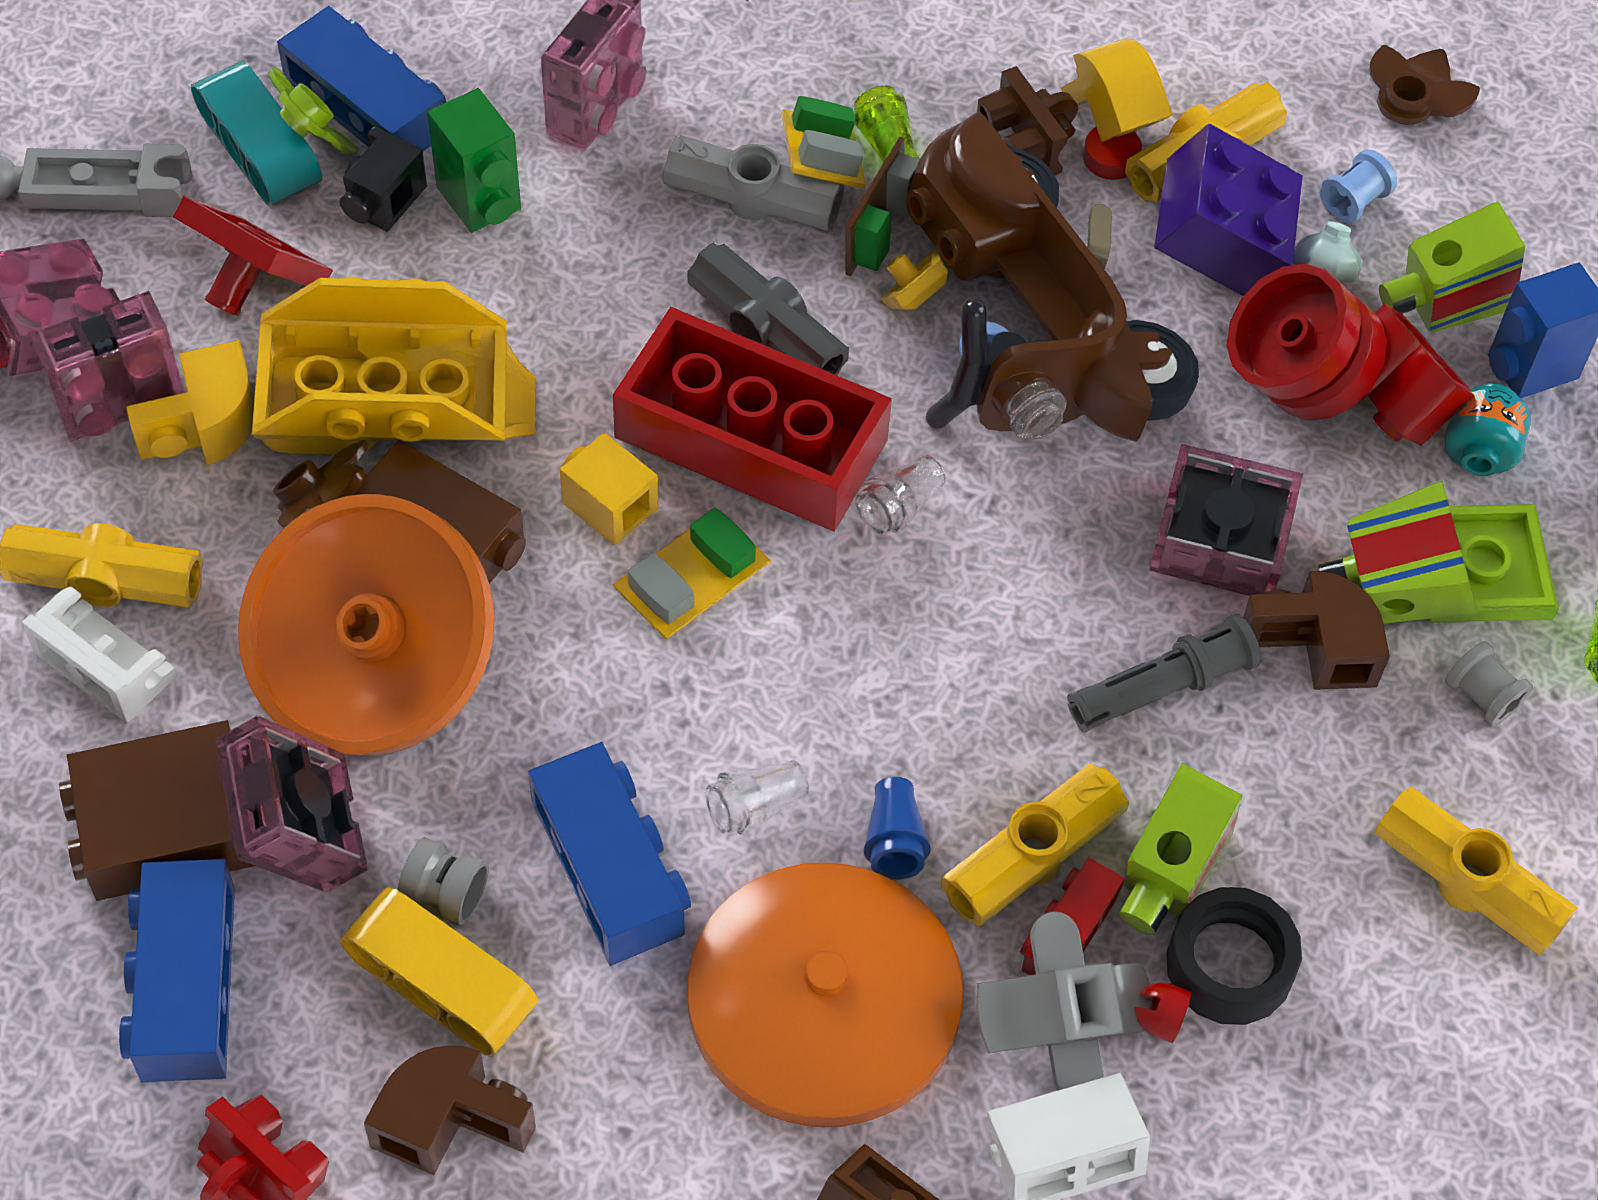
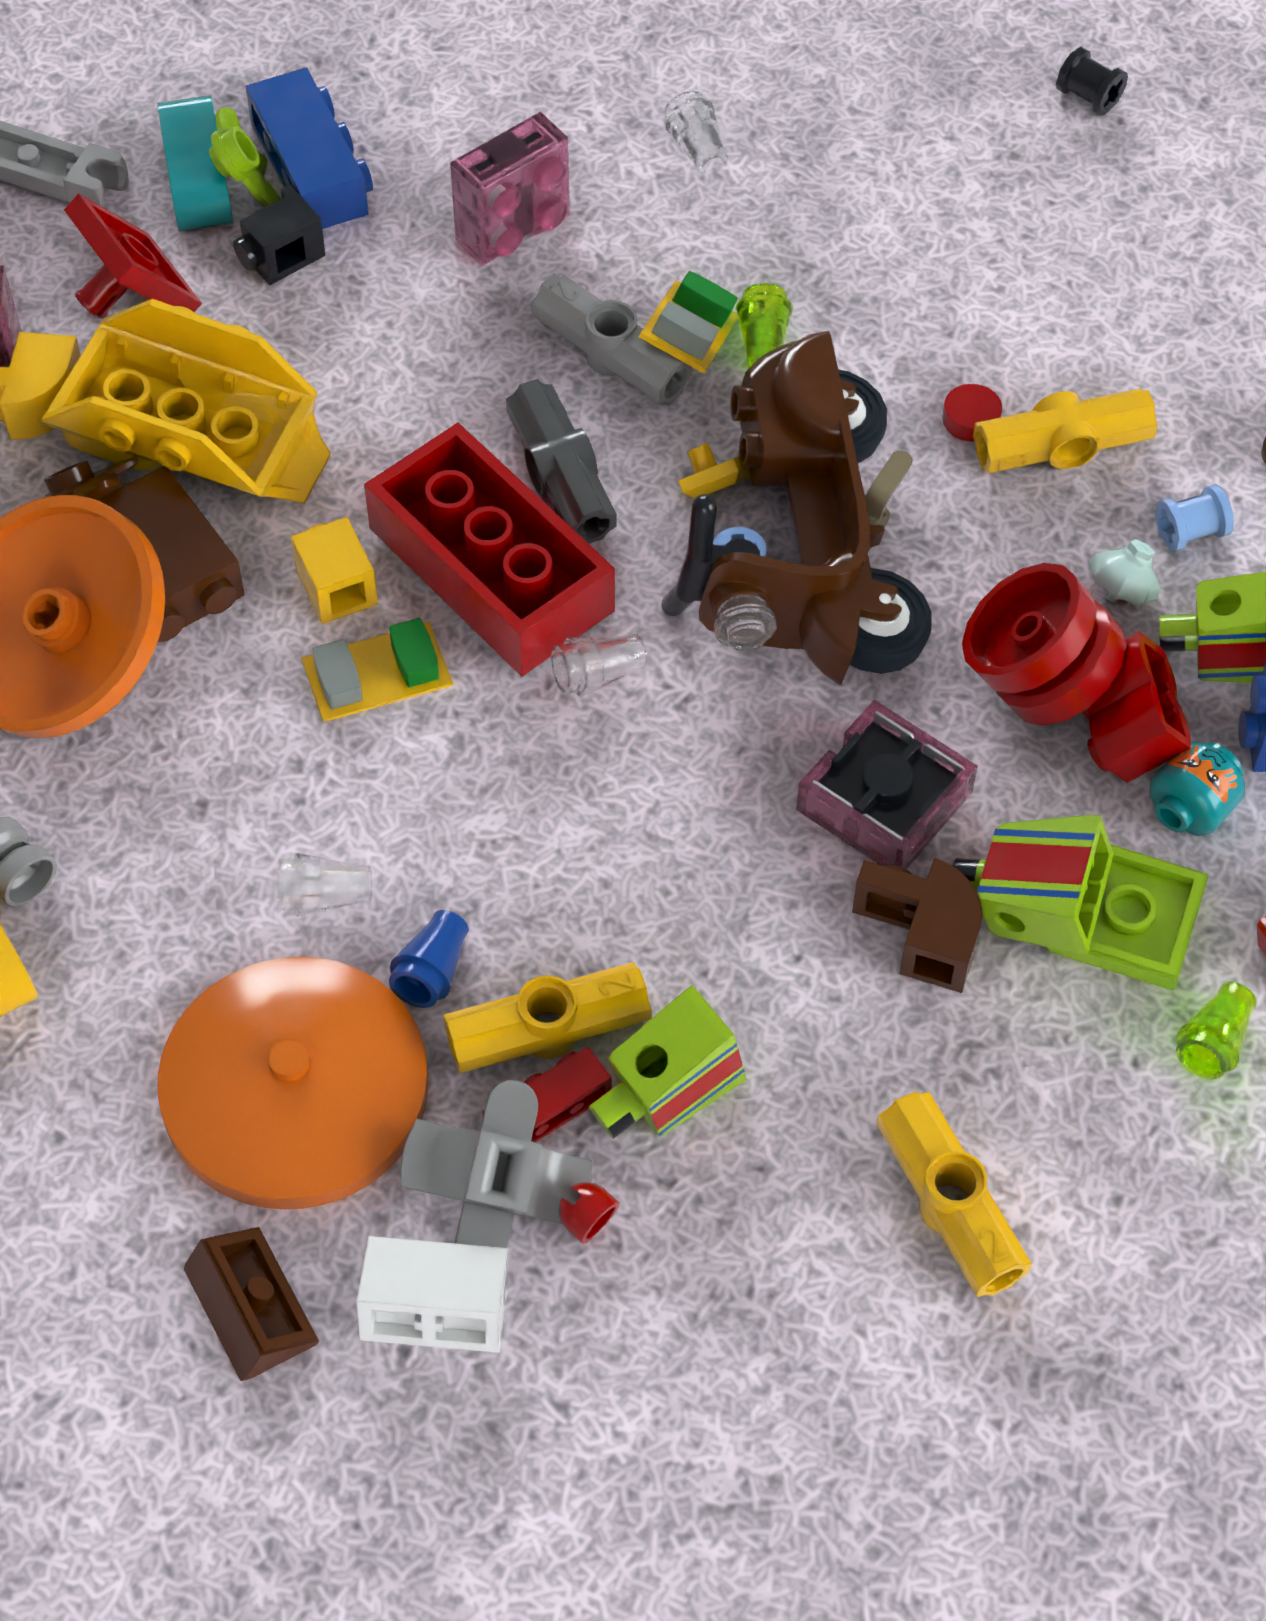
camera: 25 degrees right, 0 degrees up
(475, 160) = (361, 241): green brick -> none
(609, 852) = (164, 888): blue brick -> none
(870, 224) = (690, 407): piece -> none
(1037, 118) = (909, 362): reddish brown hips -> none
(1120, 88) = (993, 353): yellow brick -> none
(1189, 664) = (784, 907): dark grey pin -> none
(1228, 210) = (1040, 496): dark purple brick -> none
(1251, 911) = (680, 1236): black tyre -> none
(1488, 683) = (1065, 1026): light grey bush -> none

